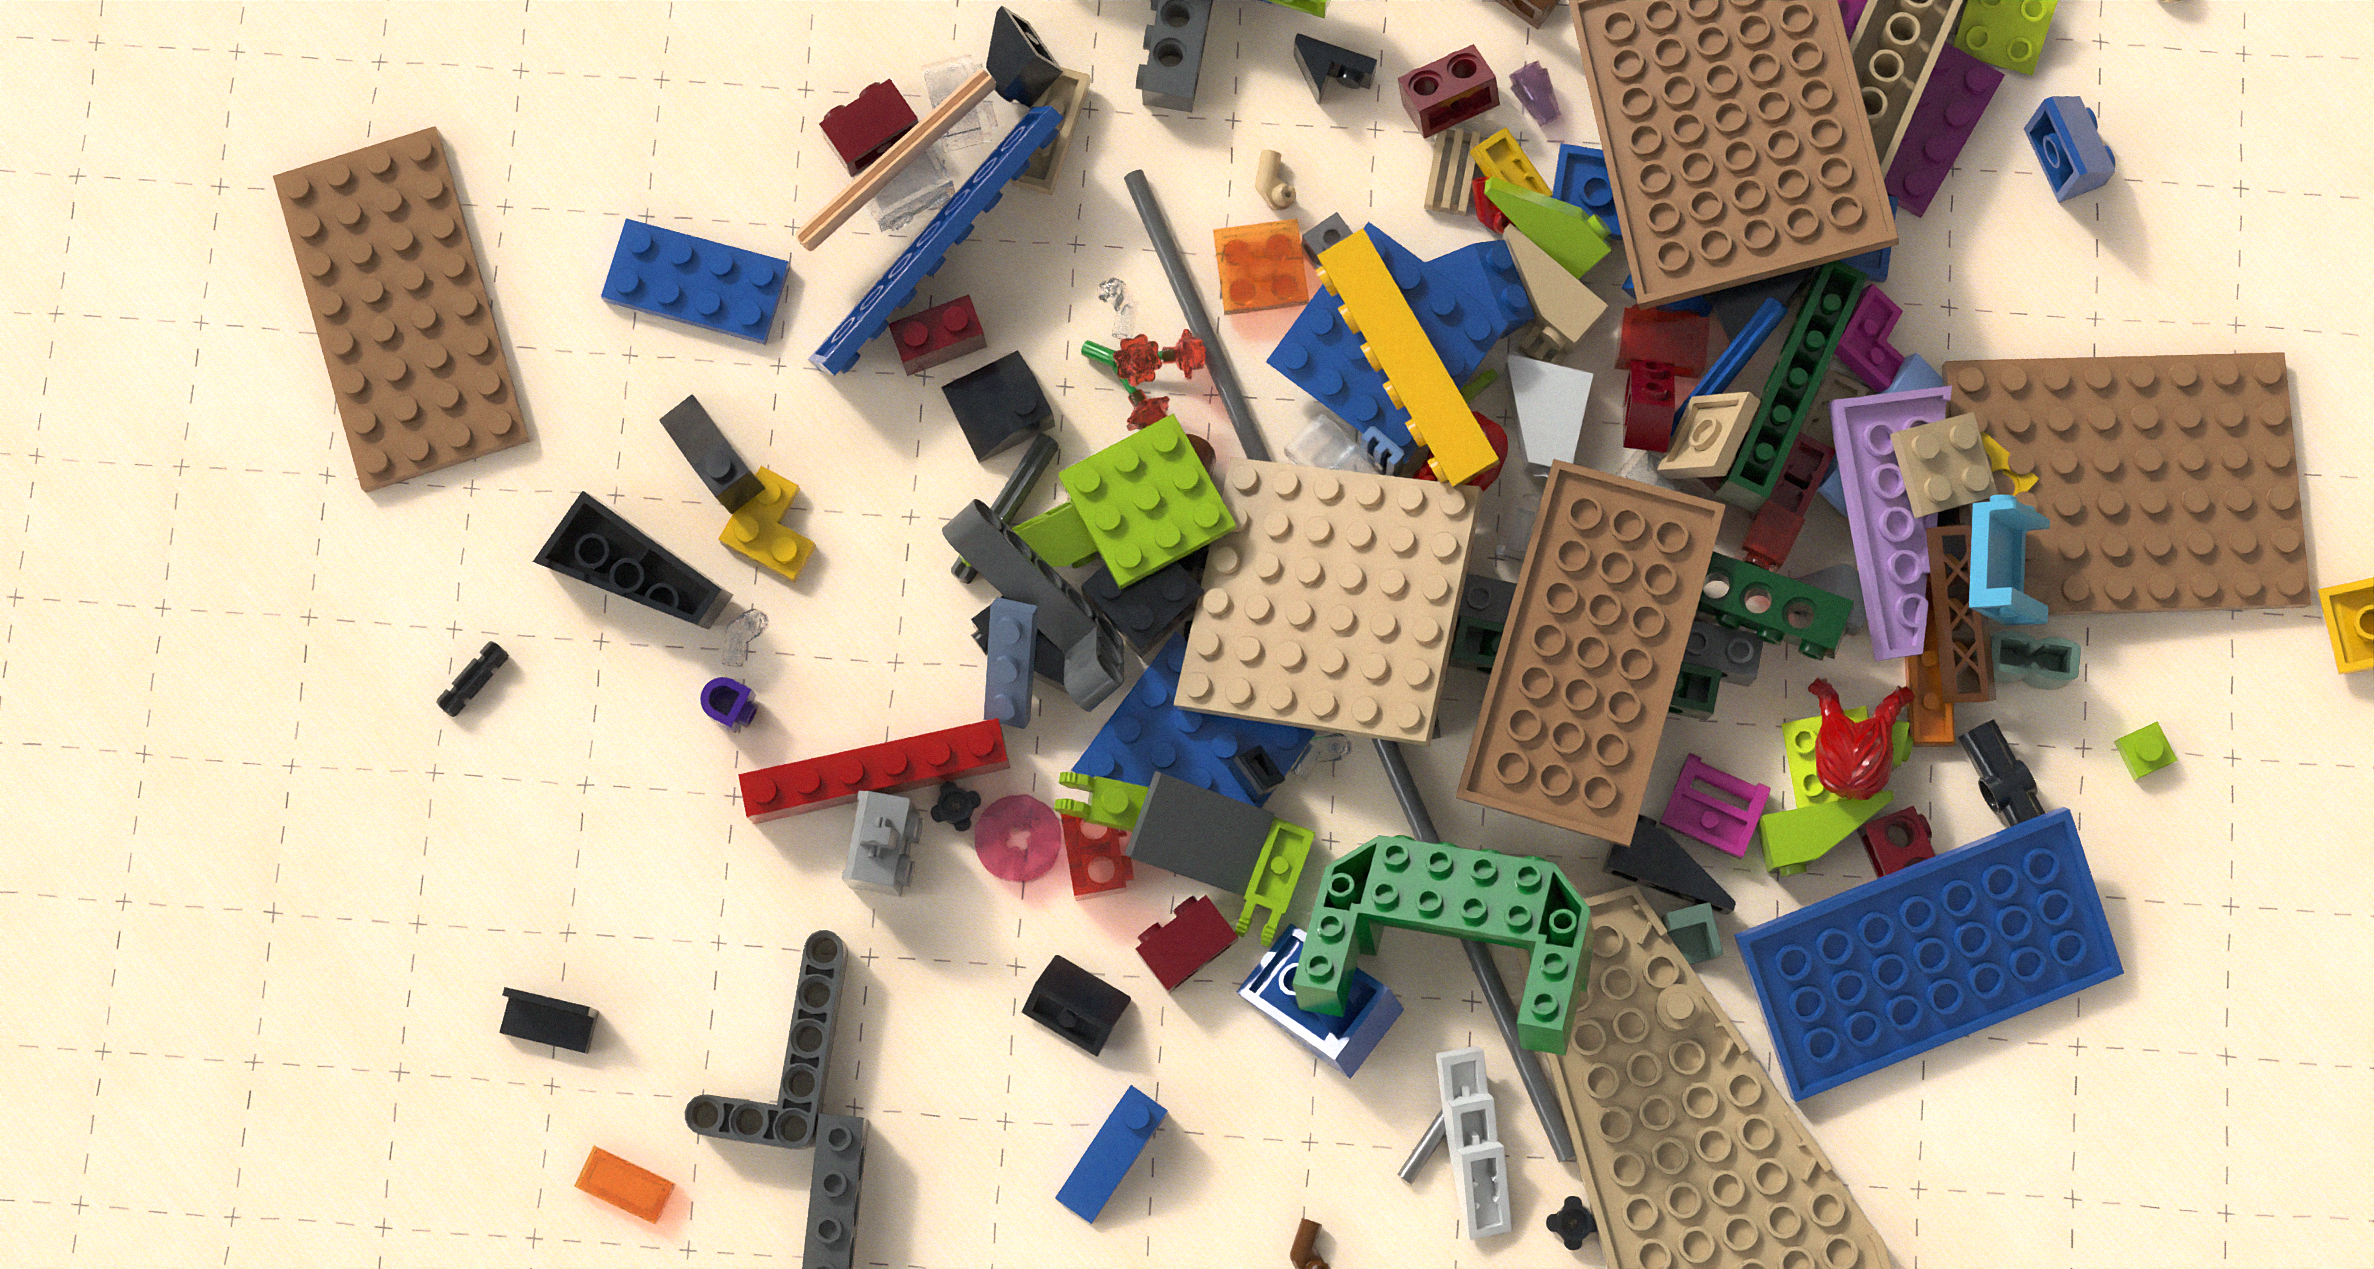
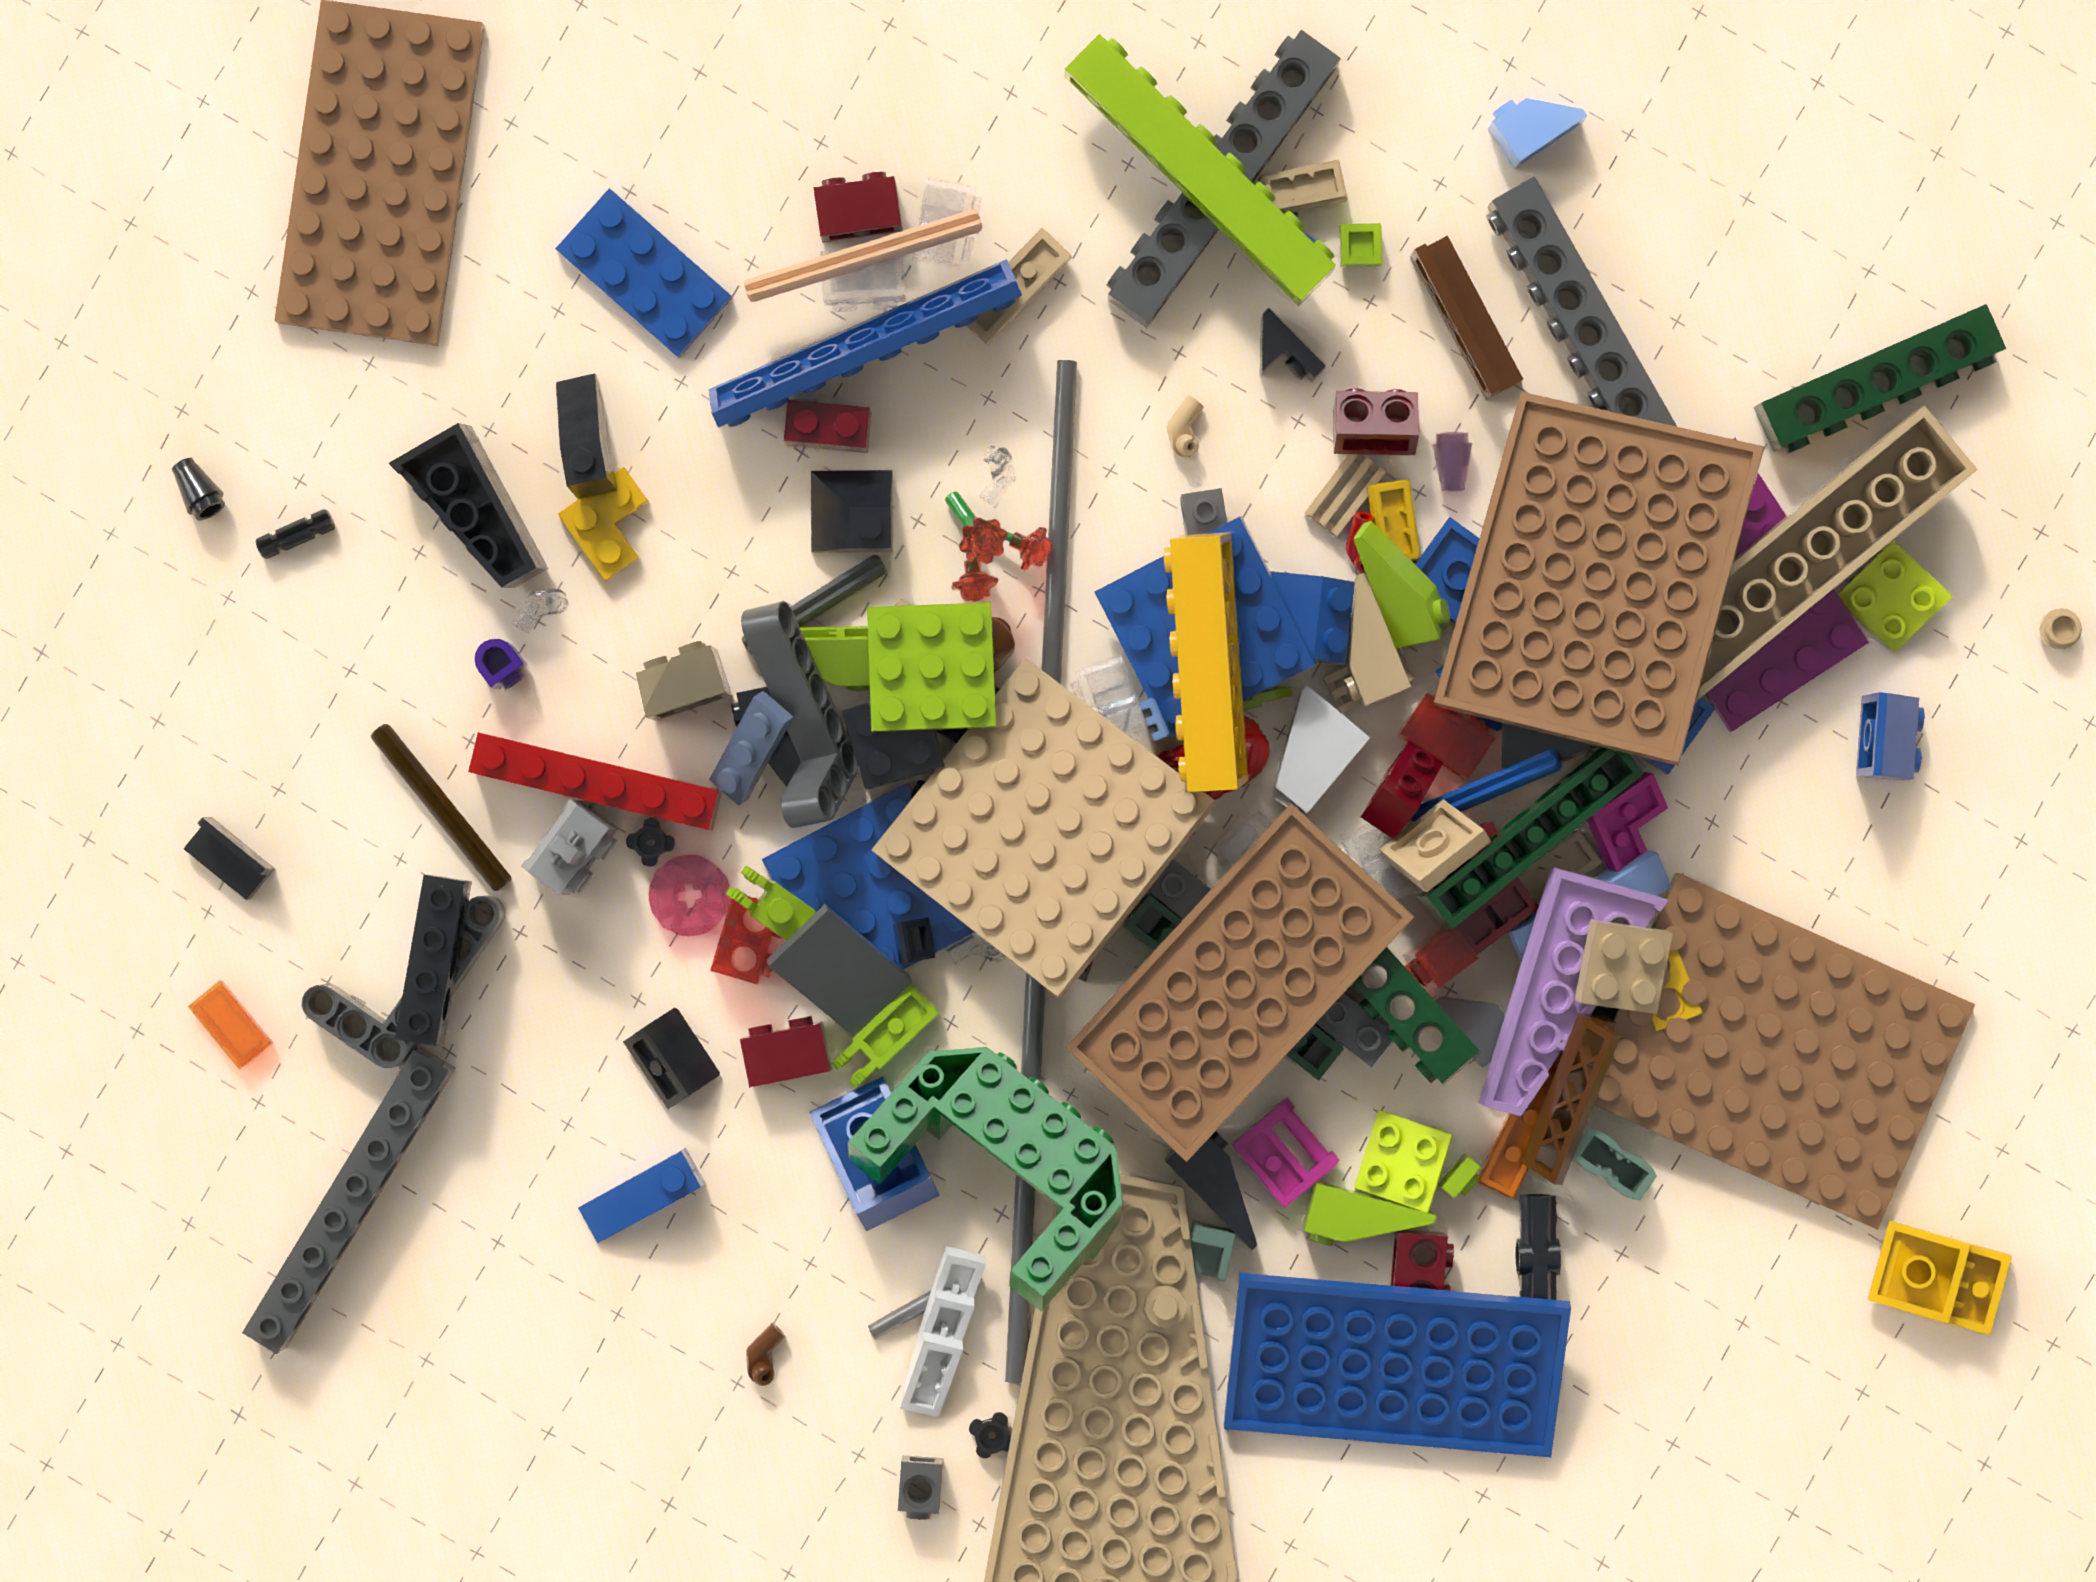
camera: 25 degrees right, 10 degrees up
(359, 681) = (197, 490): none -> black cone
(735, 871) = (441, 807): none -> dark brown axle
(797, 1011) = (433, 959): none -> black brick
(918, 635) = (683, 682): none -> dark tan slope
(1019, 60) = (1017, 211): black slope -> none
(1260, 267) = (1135, 499): clear orange plate -> none
(1853, 756) = (1419, 1176): red hair -> none
(1999, 561) = (1624, 1074): medium azure panel -> none
(2145, 750) = (1671, 1282): lime plate -> none

